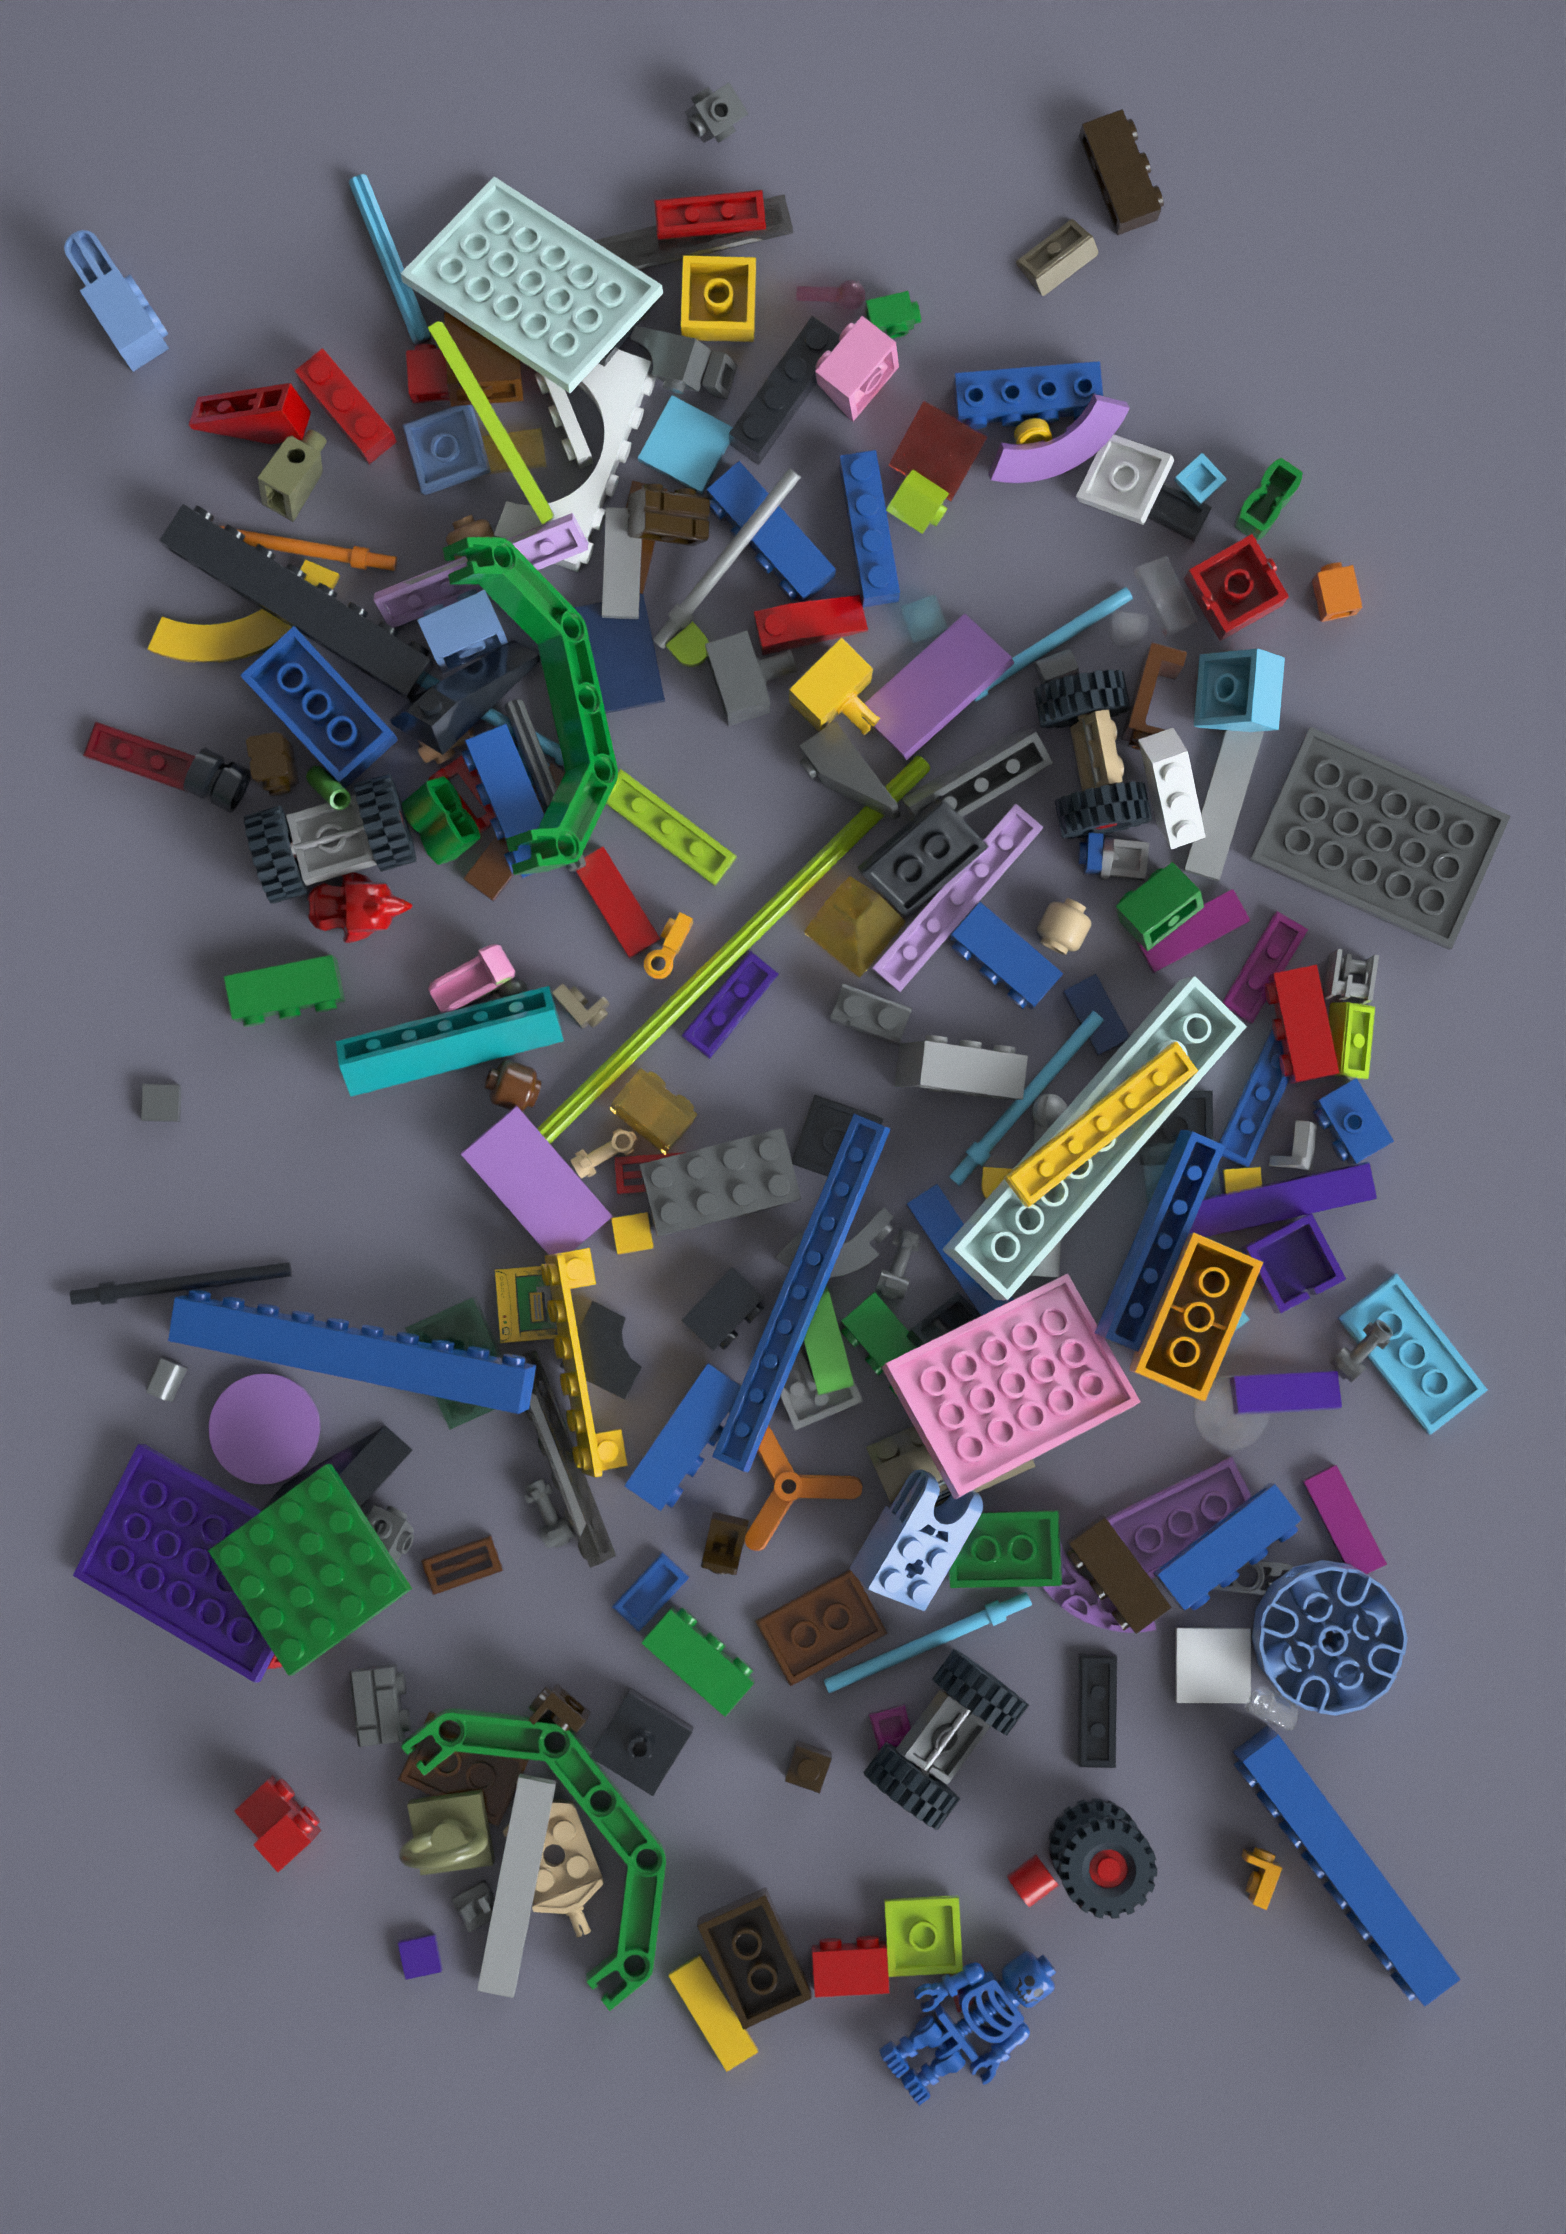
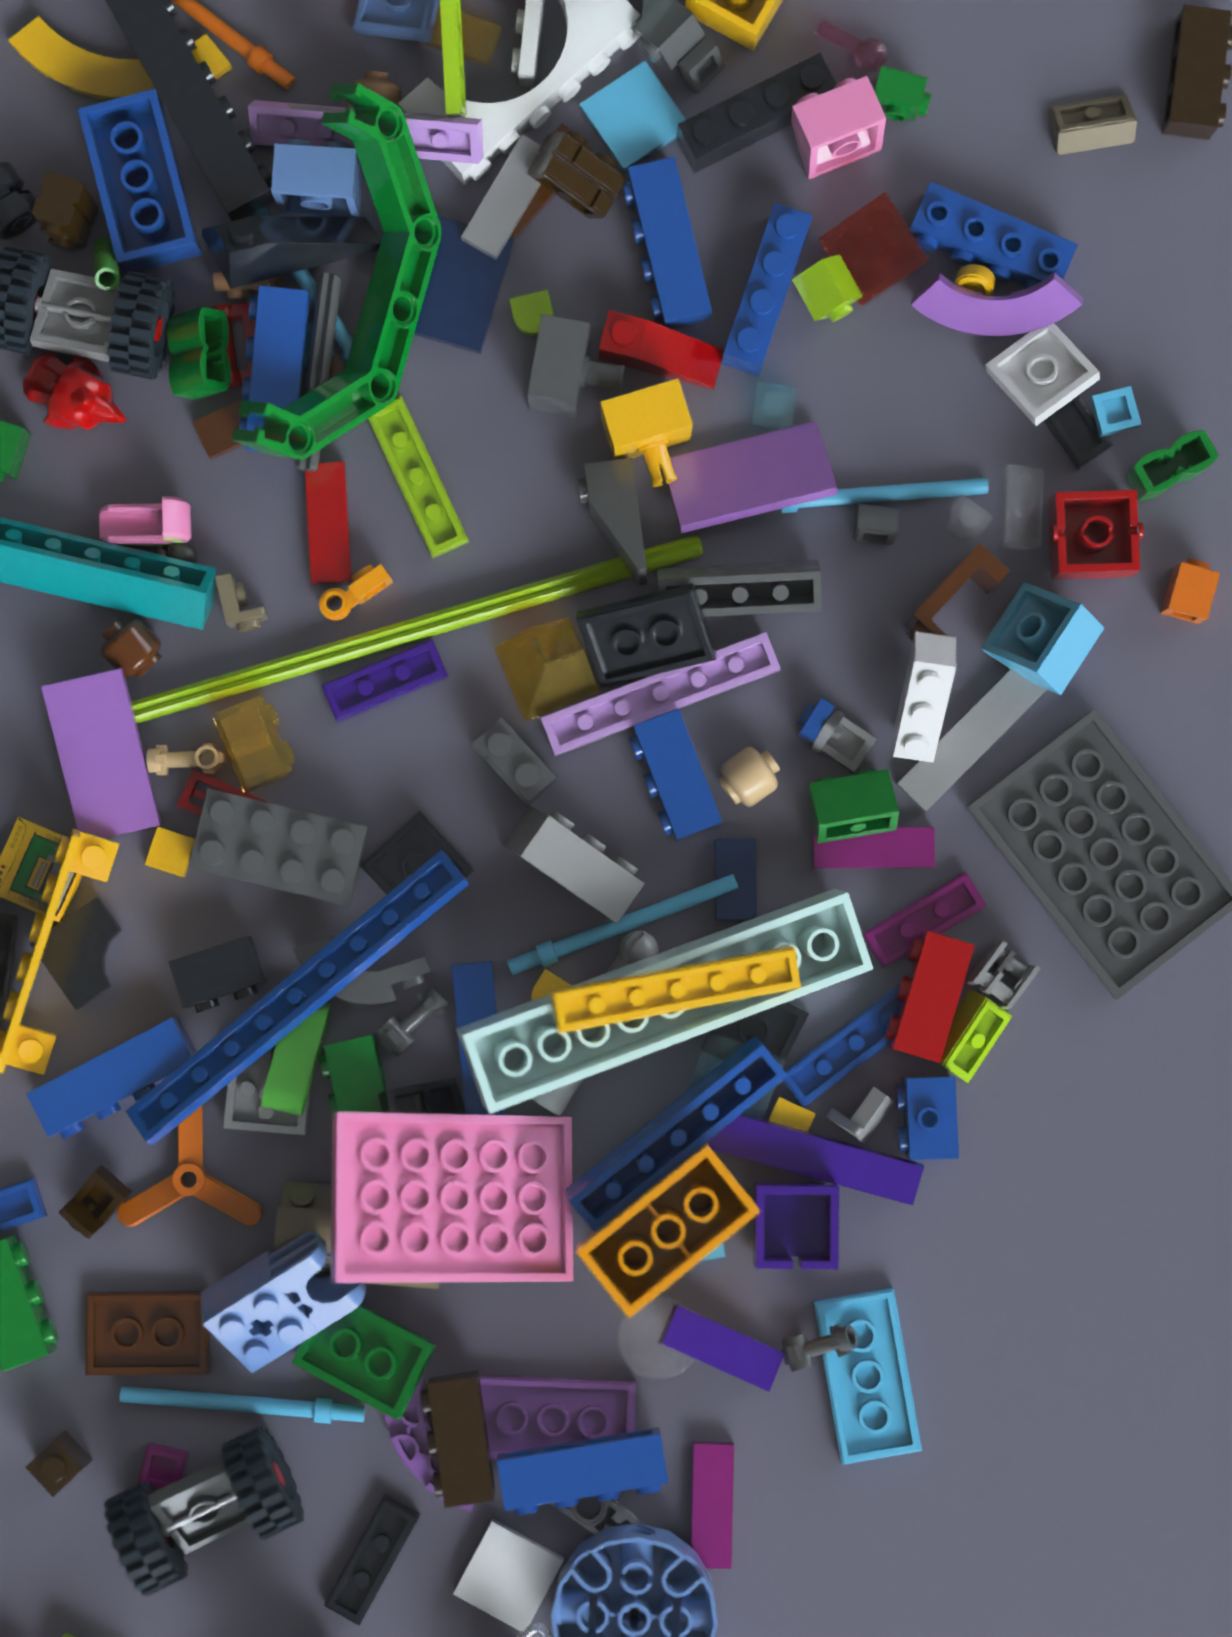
camera: 25 degrees right, 0 degrees up
(682, 614) = (540, 277): light grey bar -> none
(1086, 706) = (886, 572): black plate -> none

